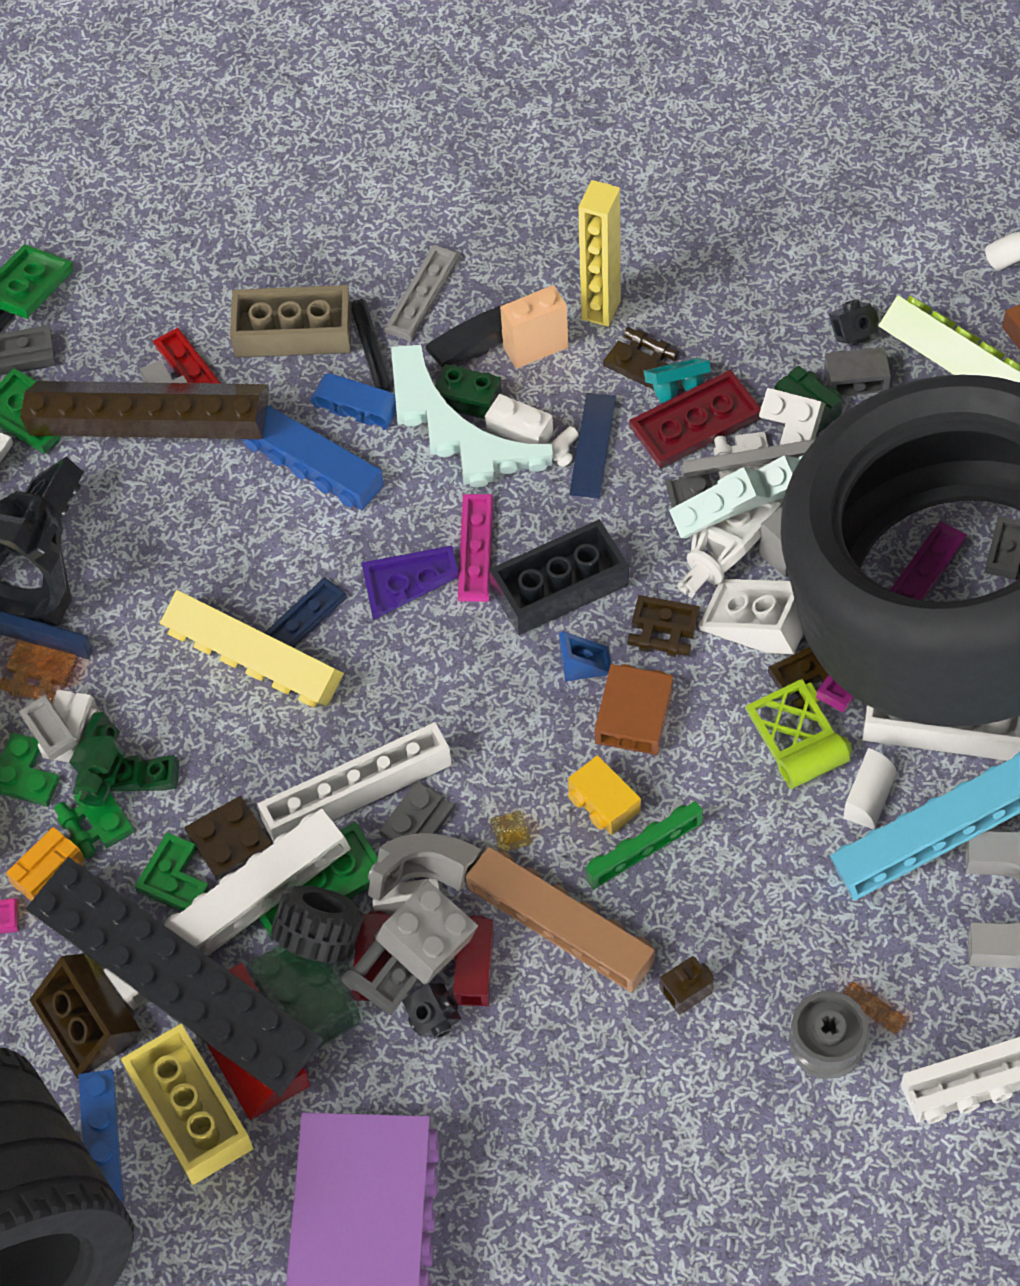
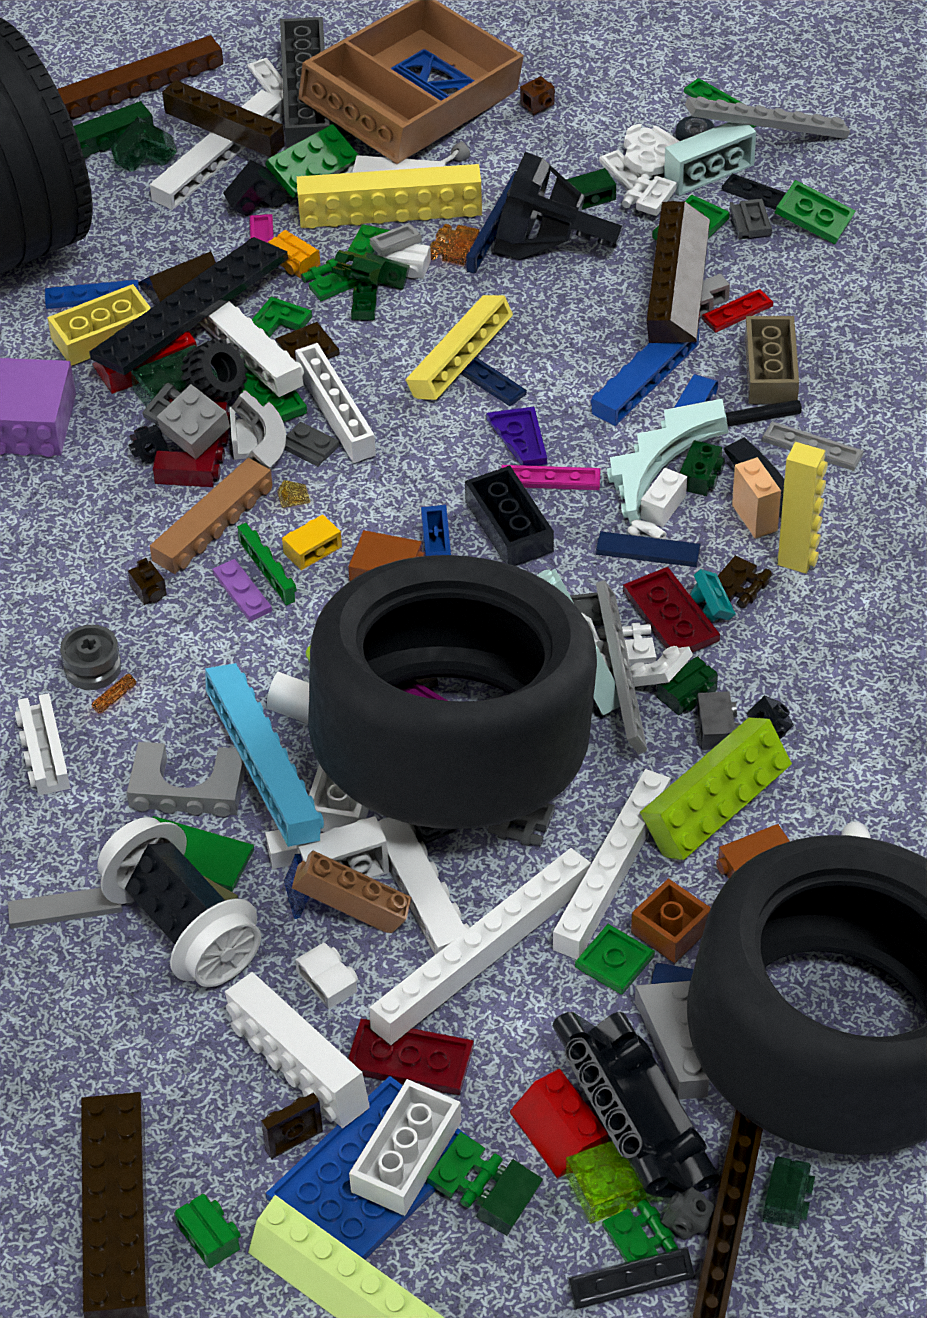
camera: 90 degrees right, 10 degrees down
(682, 874) = (242, 590): none -> medium lavender plate

